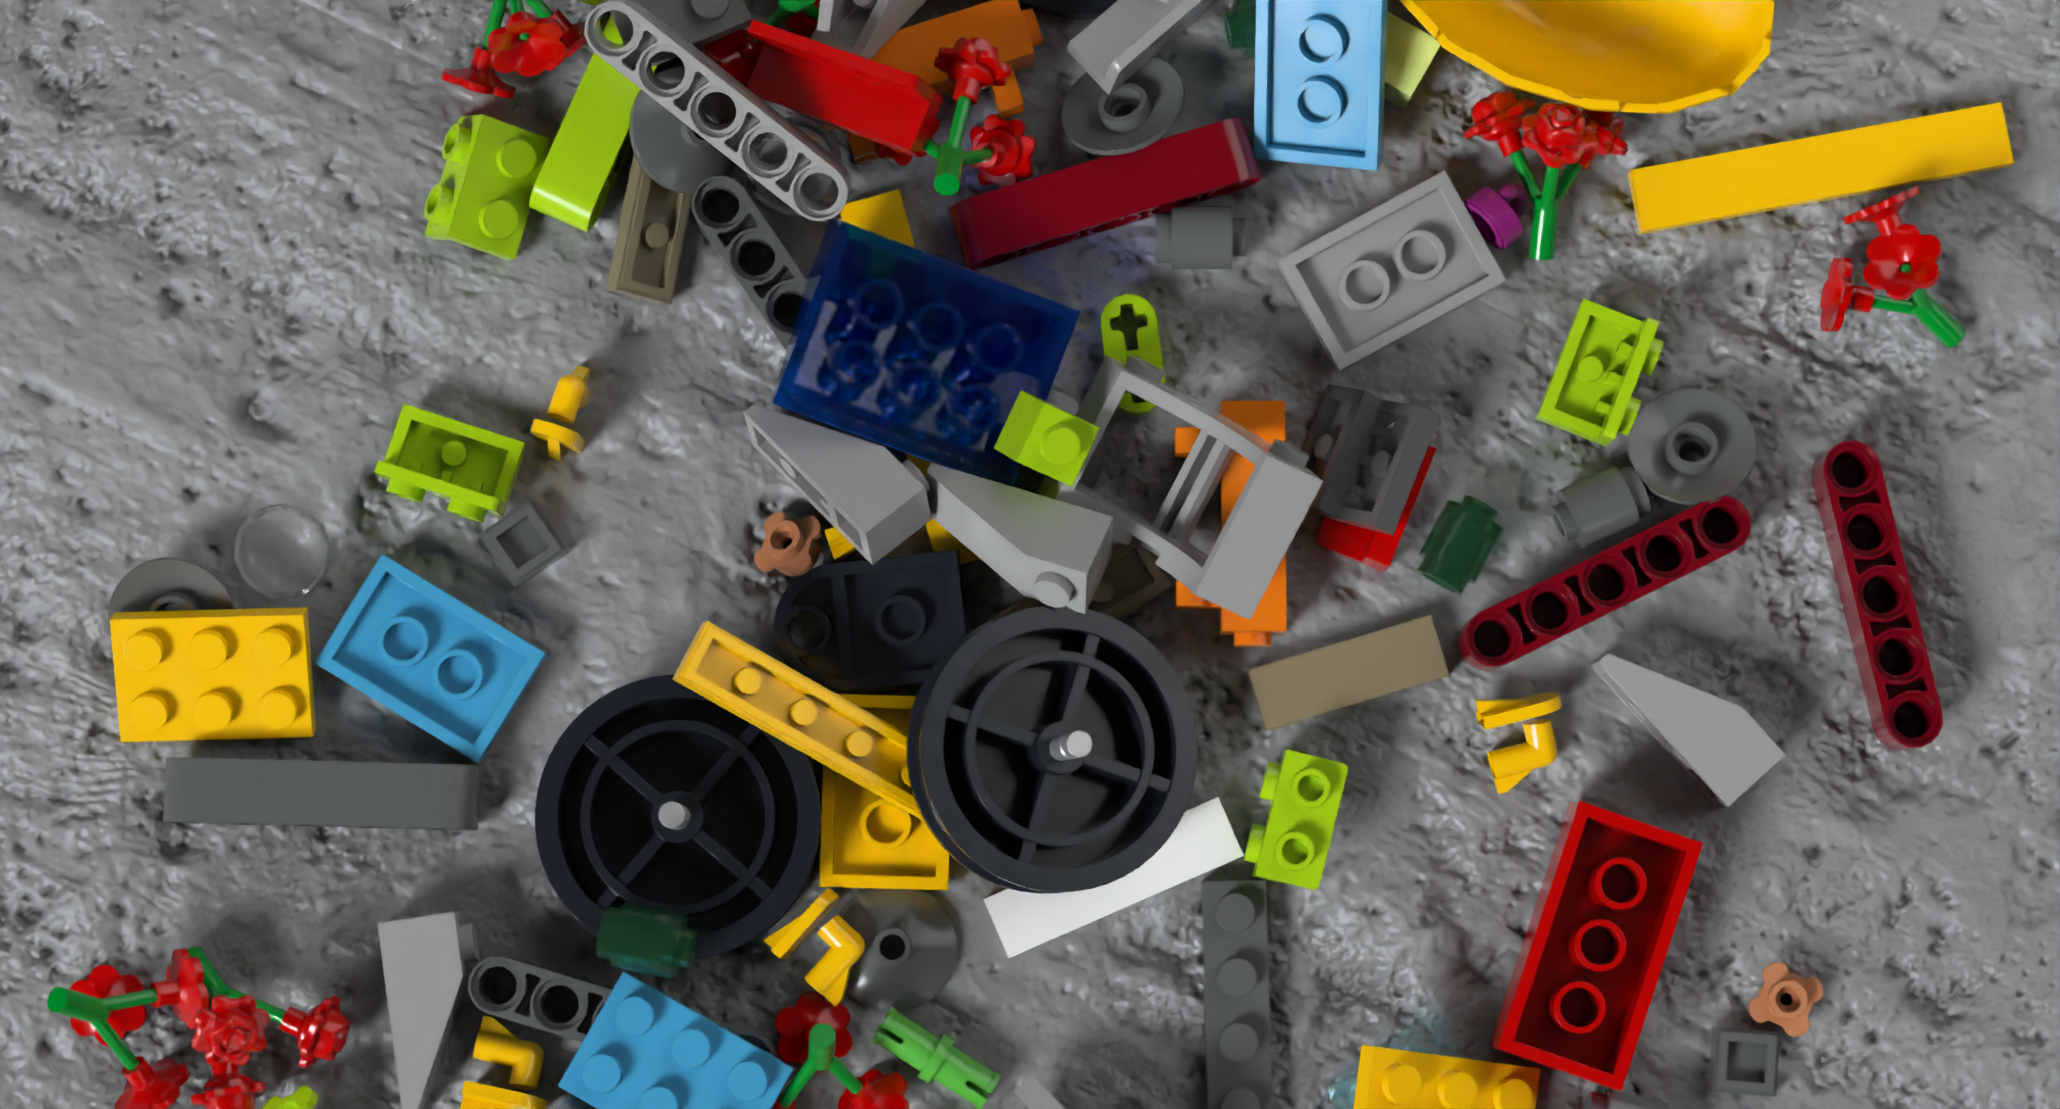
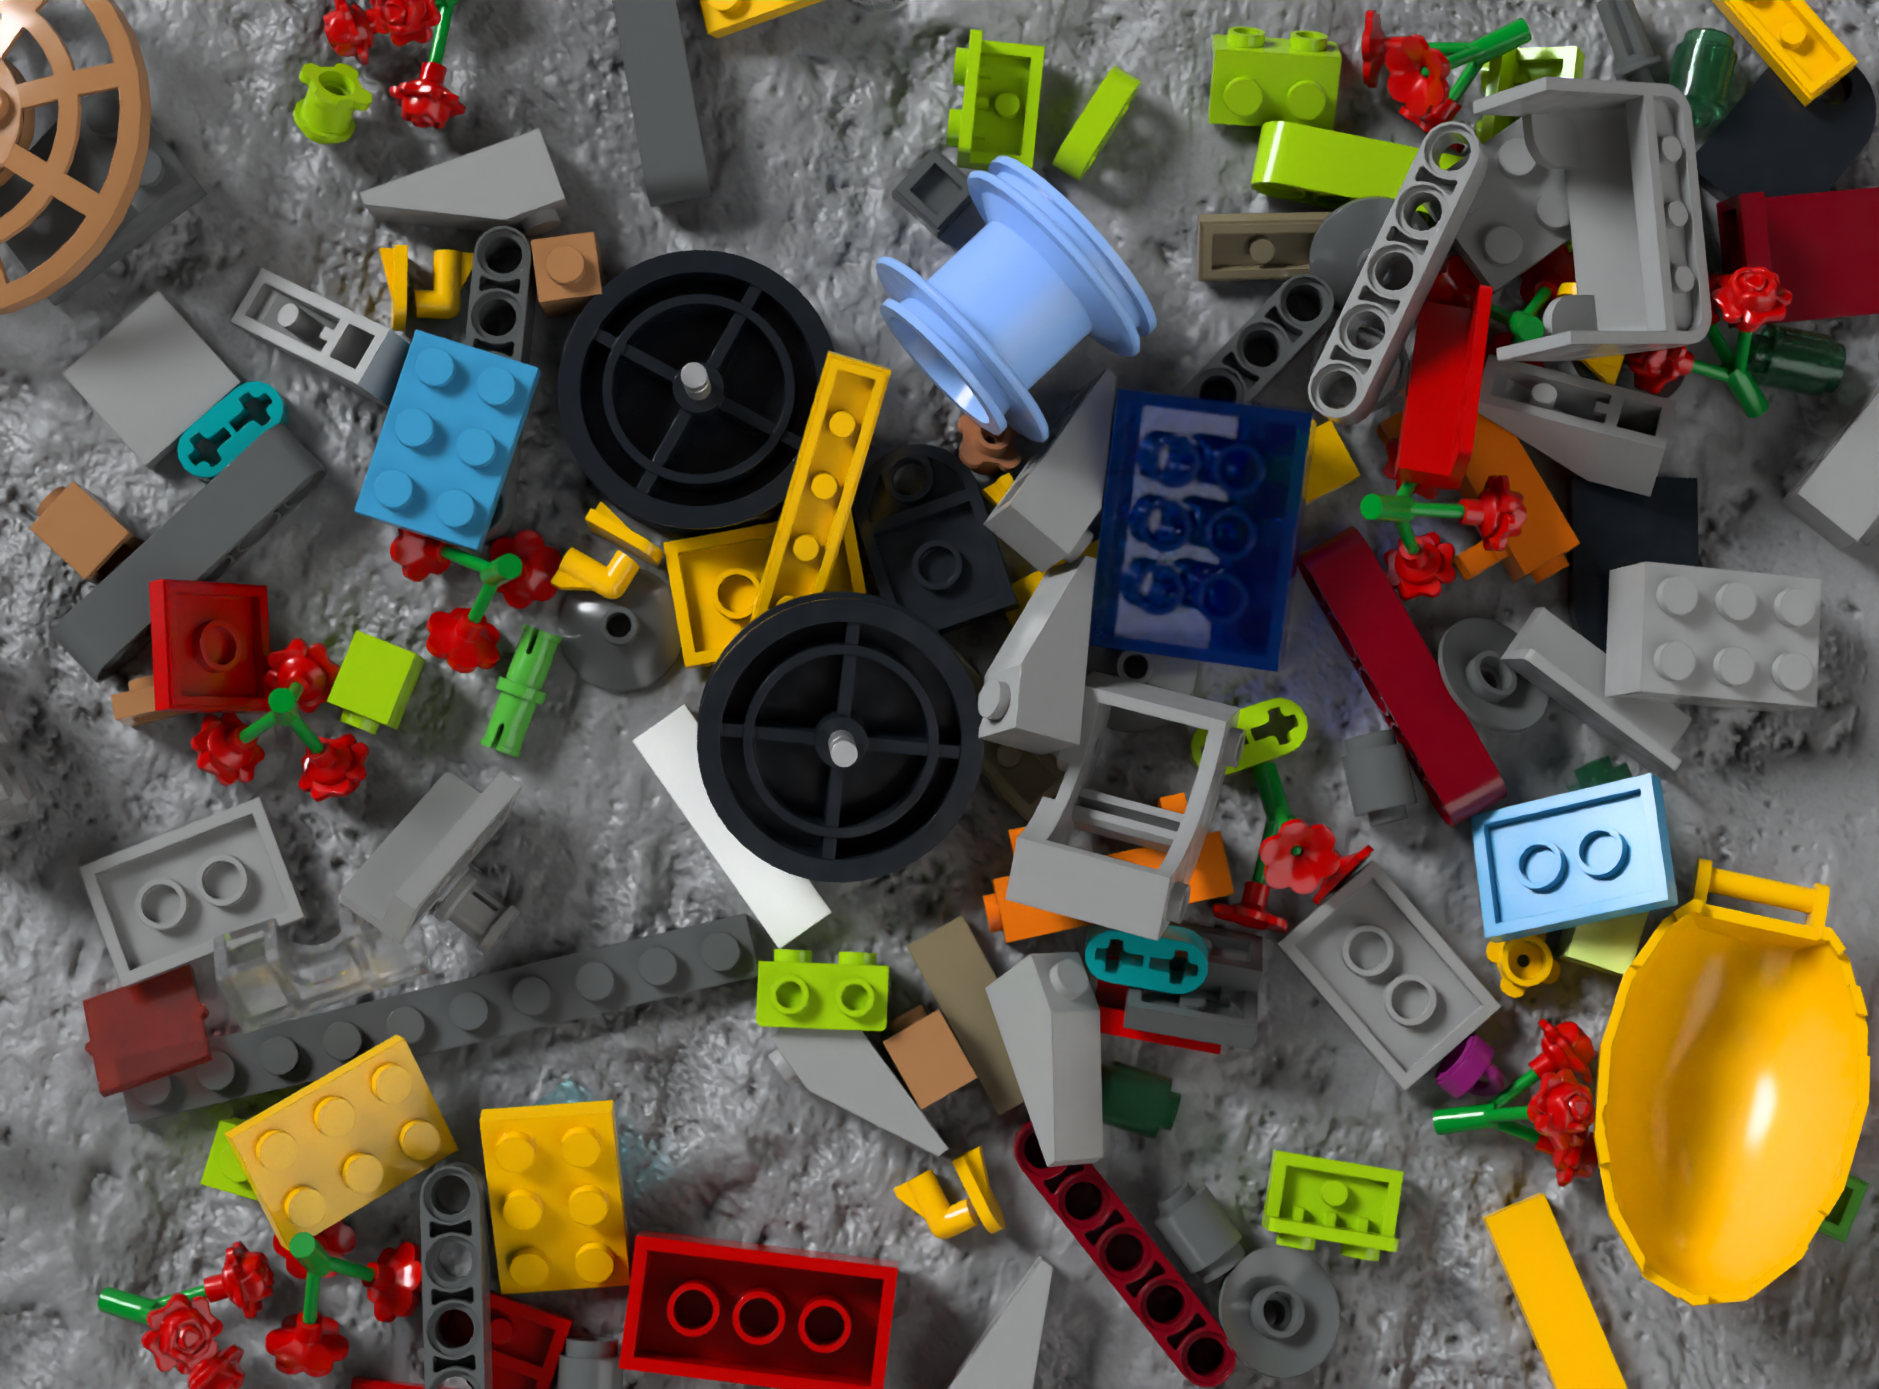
camera: 75 degrees right, 0 degrees up
(431, 659) = (805, 128): dark azure plate -> none
(492, 369) = (1097, 123): none -> lime beam
(529, 924) = (567, 272): none -> medium nougat brick
(568, 397) = (1087, 198): yellow piece -> none
(646, 940) = (571, 381): clear green brick -> none
(663, 487) = (1014, 300): none -> light blue wheel
(1046, 438) = (1143, 663): lime brick -> none
(1266, 330) = (1291, 859): none -> red plant
(1336, 499) = (1147, 961): none -> teal beam
(1378, 731) = (927, 1055): none -> medium nougat brick
(1385, 806) = (854, 1076): none -> light grey slope
(1398, 606) = (1055, 1052): none -> light grey slope
(1418, 151) = (1517, 978): none -> yellow plate

